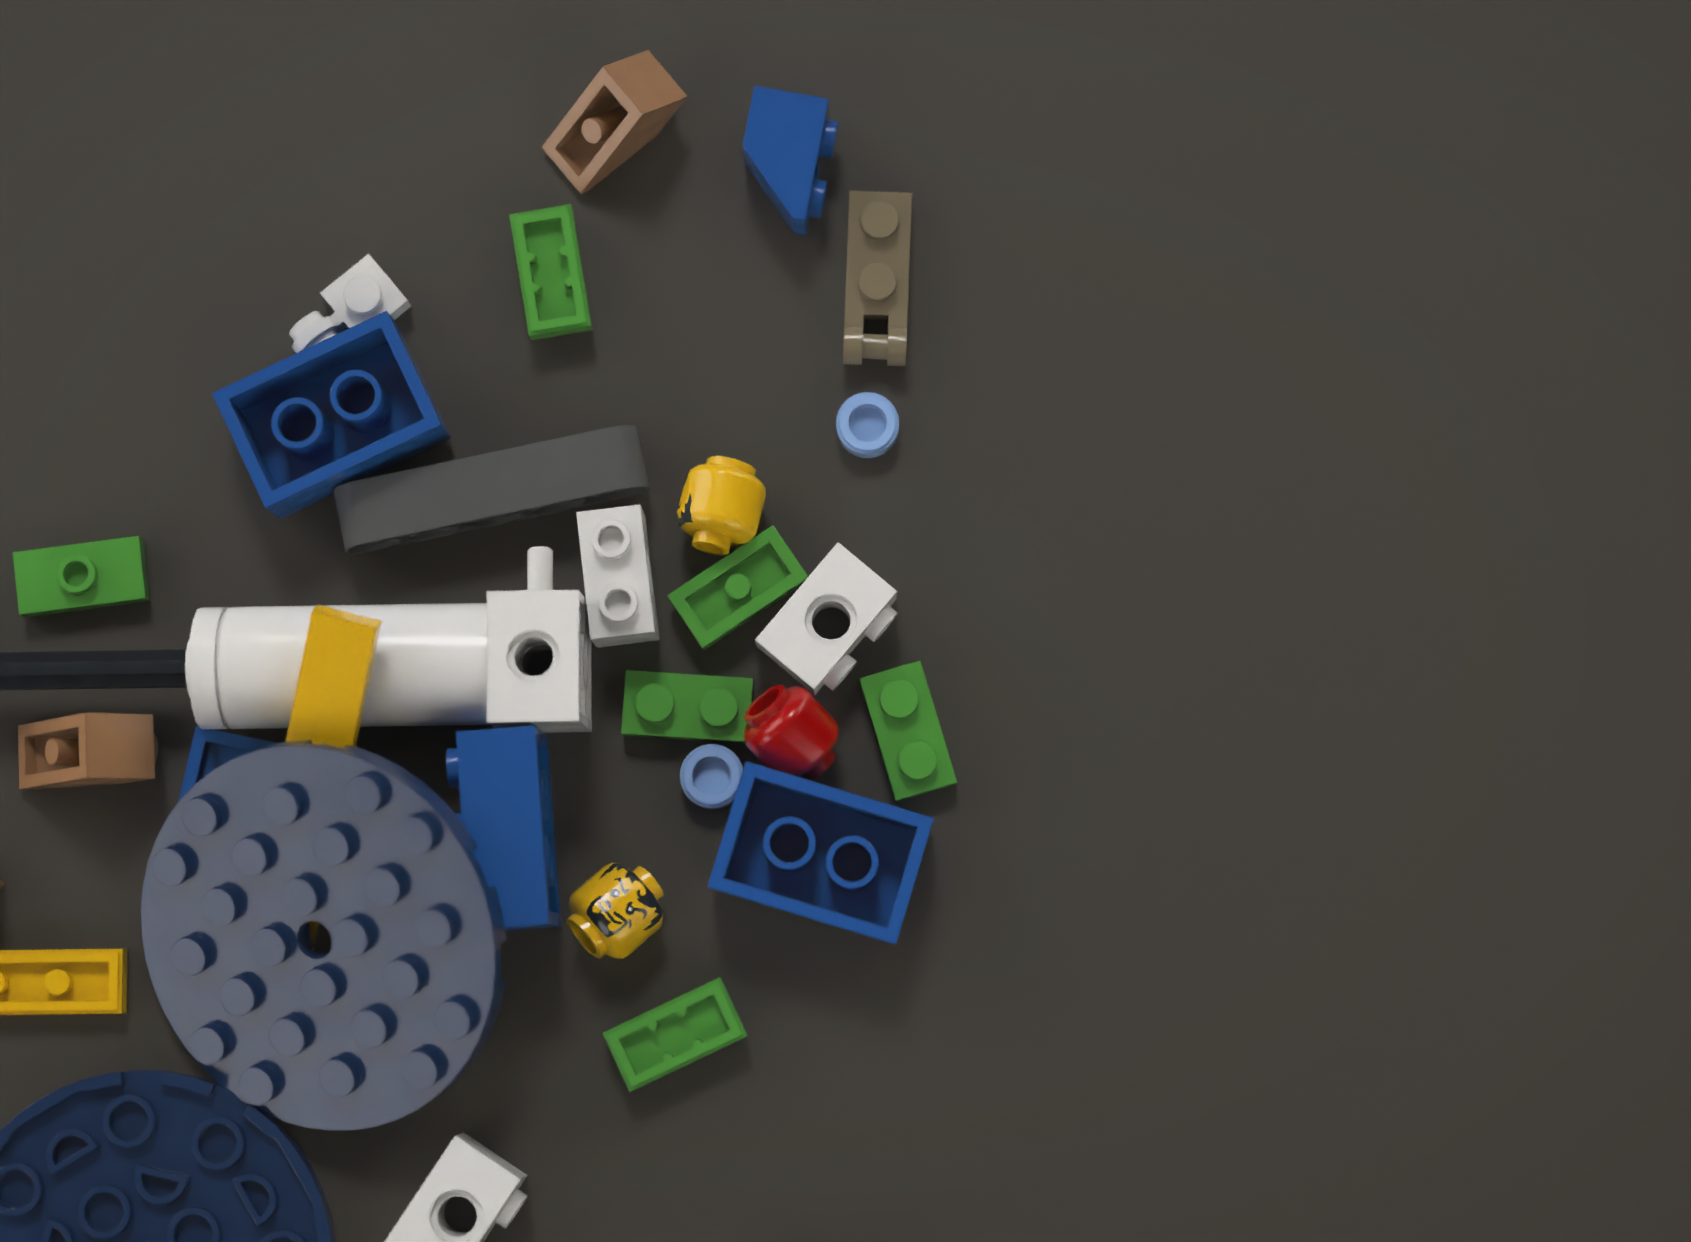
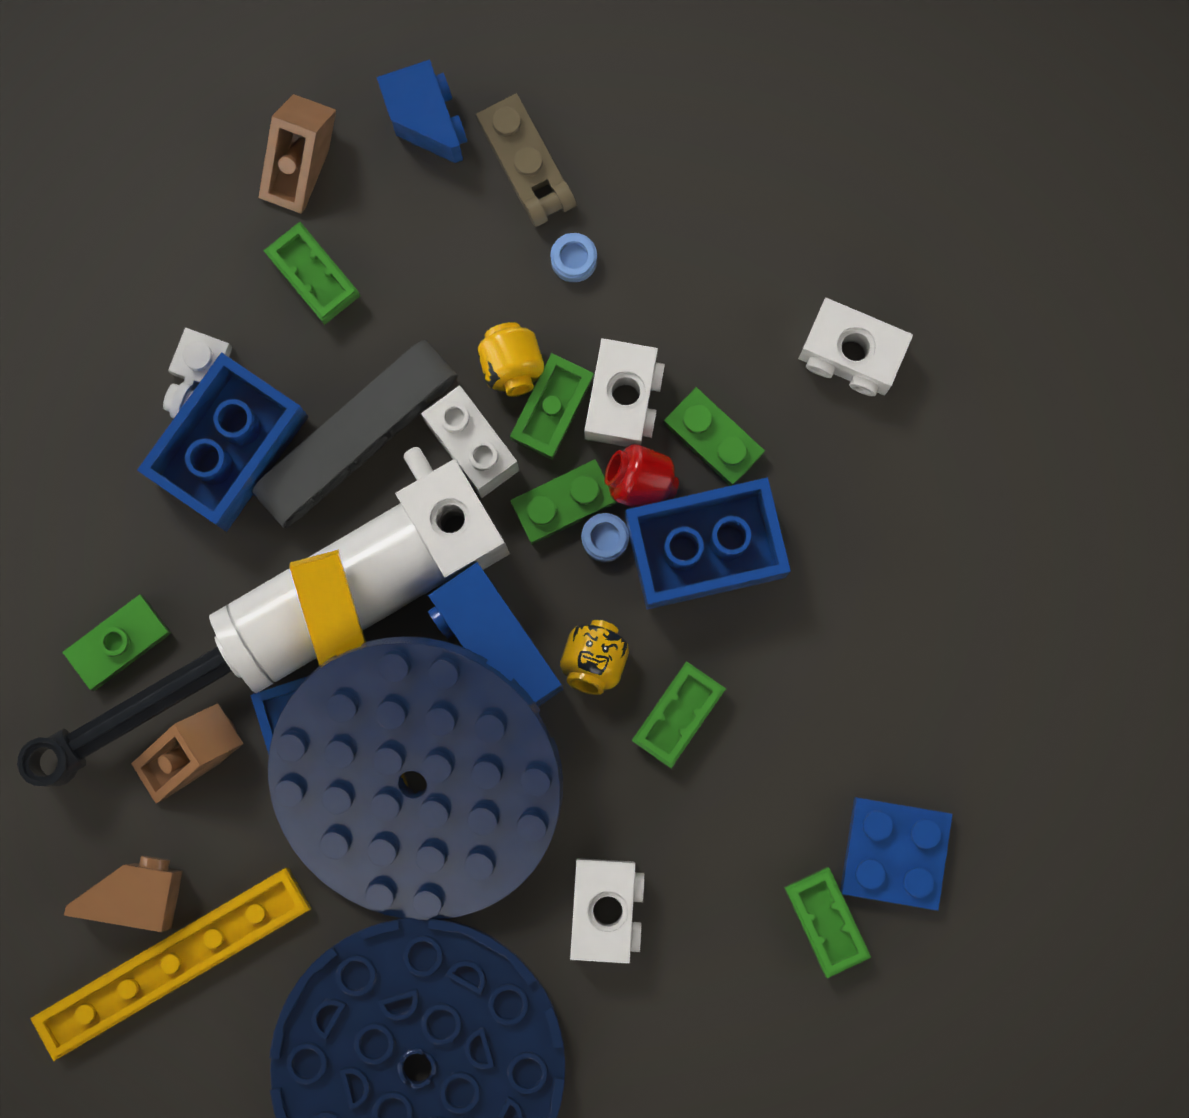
camera: 30 degrees left, 0 degrees up
(1128, 682) = (881, 342): none -> white brick

